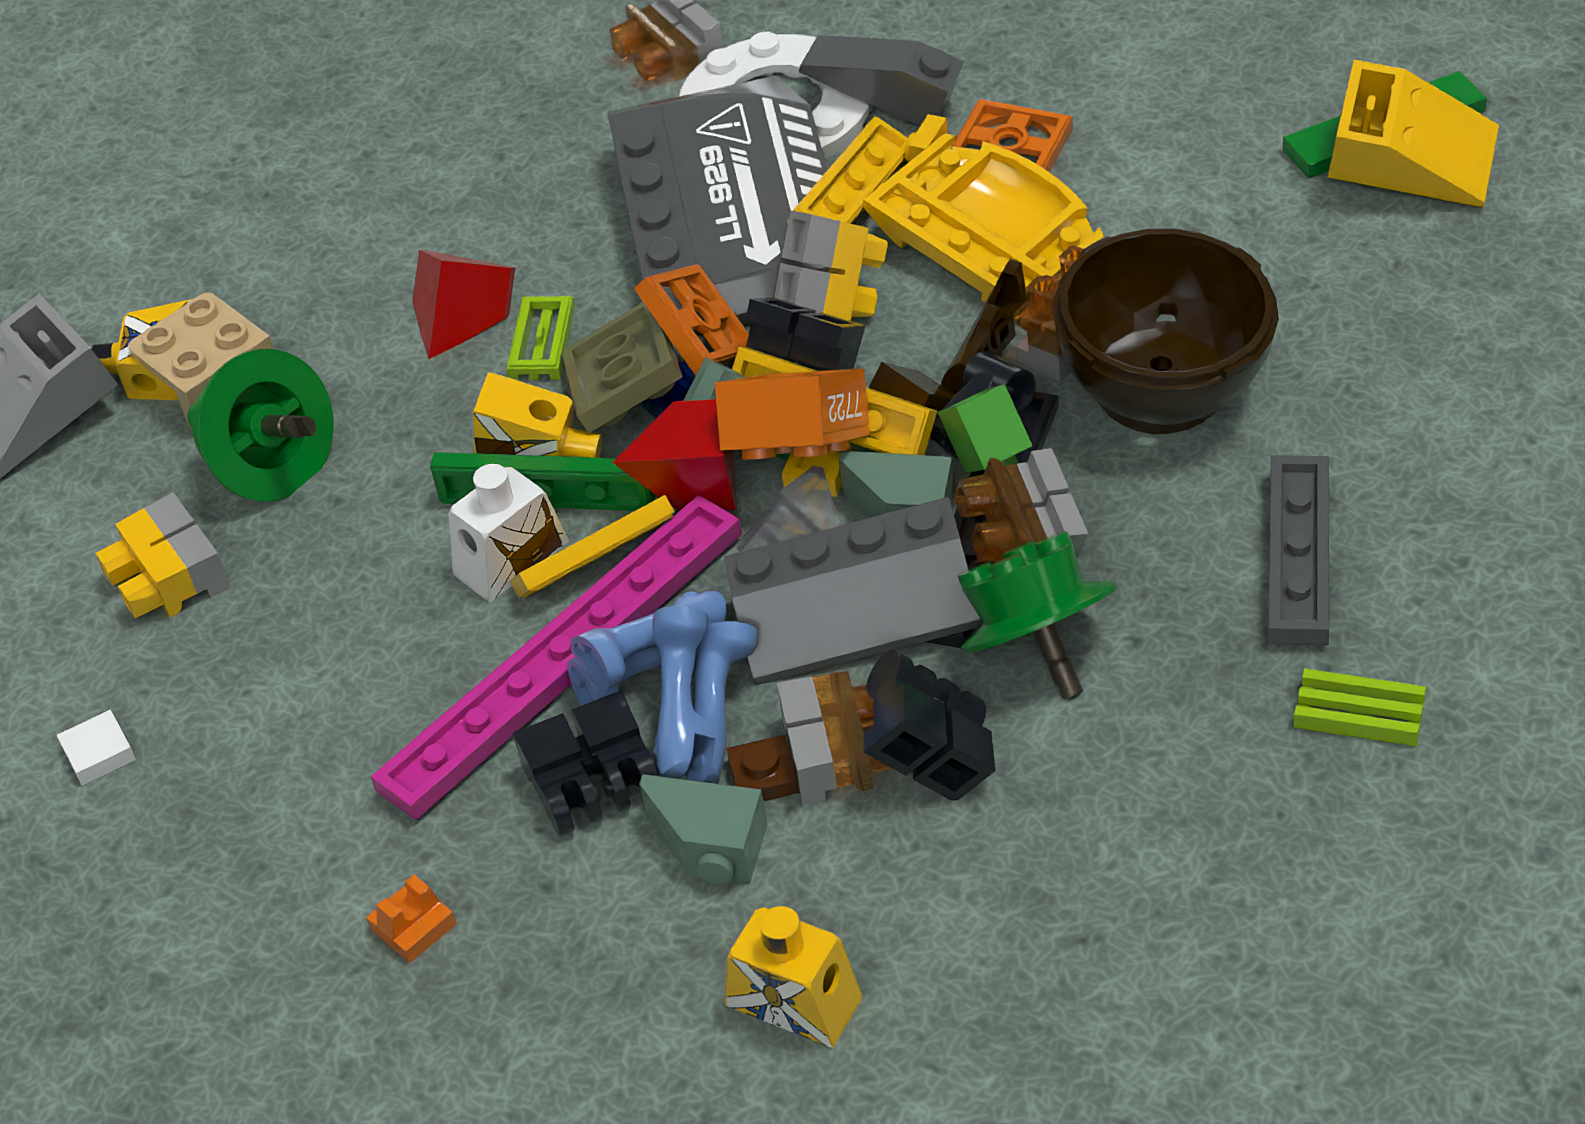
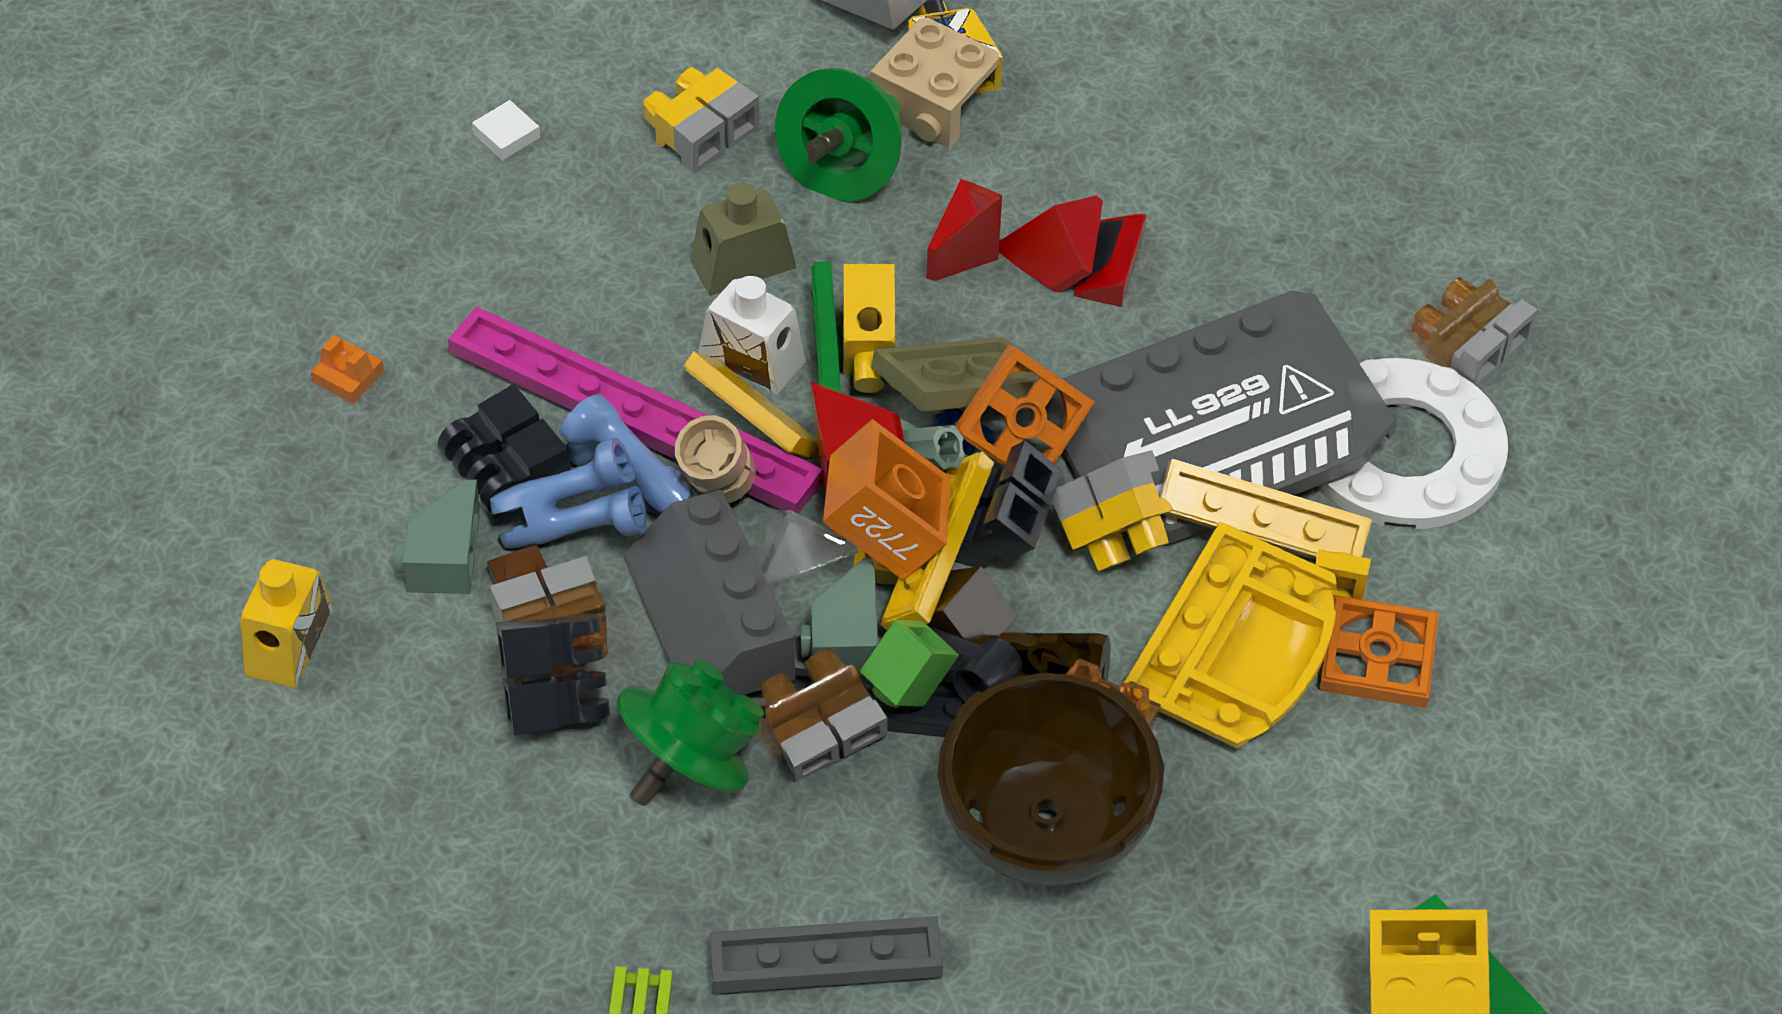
camera: 70 degrees right, 5 degrees up
(368, 506) = (740, 239): none -> olive torso
(412, 352) = (966, 233): none -> red slope
(498, 249) = (1114, 260): none -> red slope
(538, 365) = (1028, 327): lime tile -> none
(684, 552) = (715, 457): none -> tan wheel
(886, 73) = (1433, 515): dark grey slope -> none

